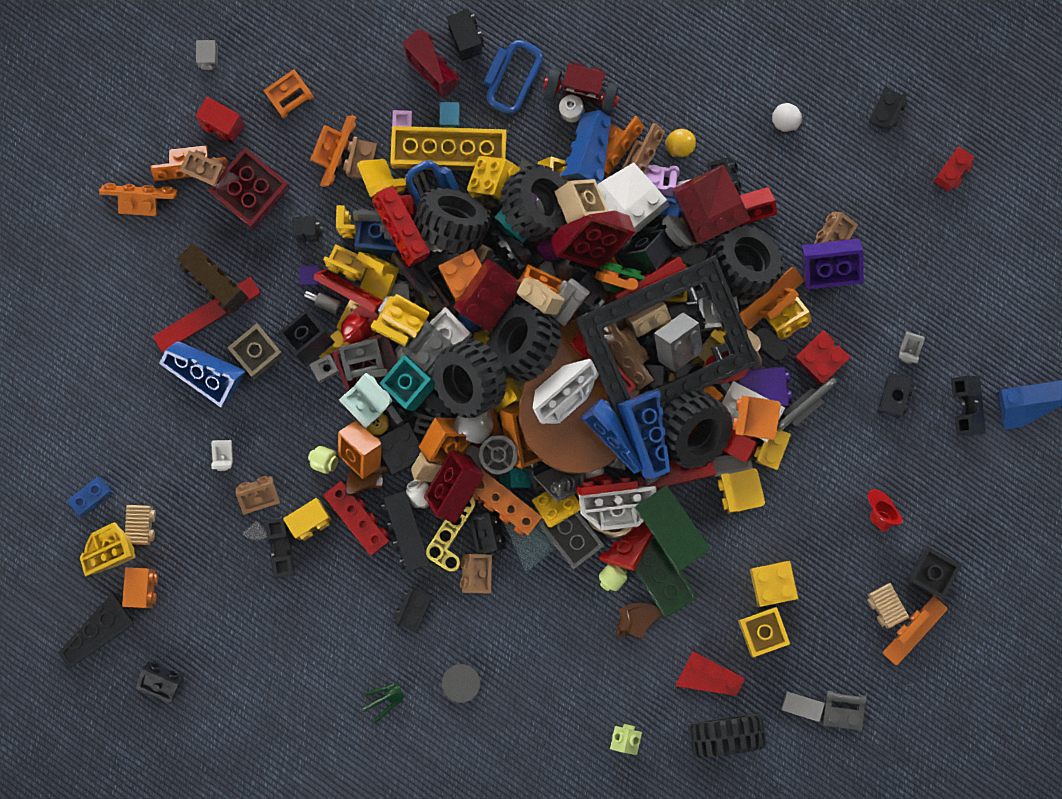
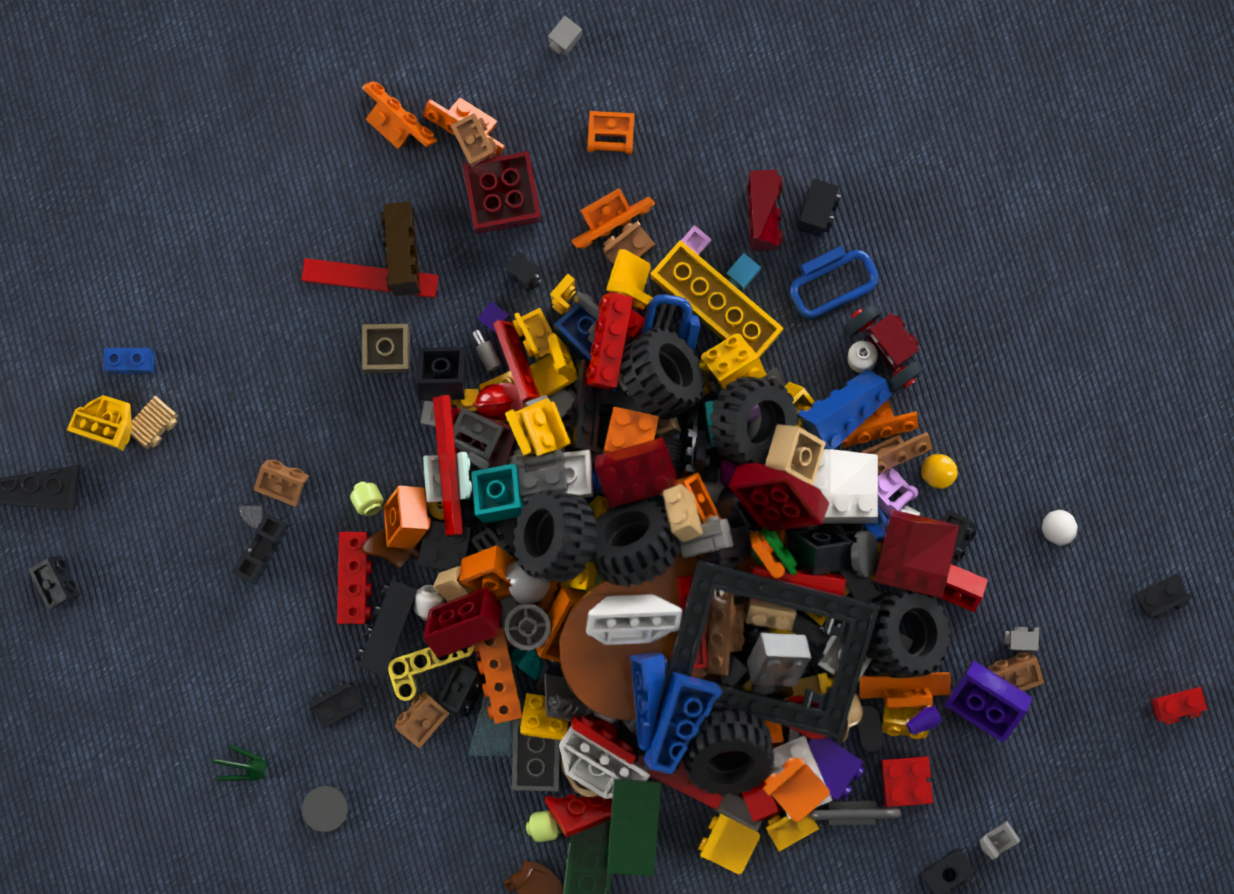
camera: 40 degrees right, 0 degrees up
(139, 588) = (104, 481): orange brick -> none
(203, 372) = (322, 329): blue wedge -> none
(220, 120) = (528, 110): red piece -> none
(222, 455) = (278, 419): white bracket -> none
(308, 519) = (307, 543): yellow brick -> none
(360, 392) = (447, 465): none -> red tile
(802, 308) = (924, 720): none -> dark purple cone
(821, 207) = (1021, 639): none -> light grey brick

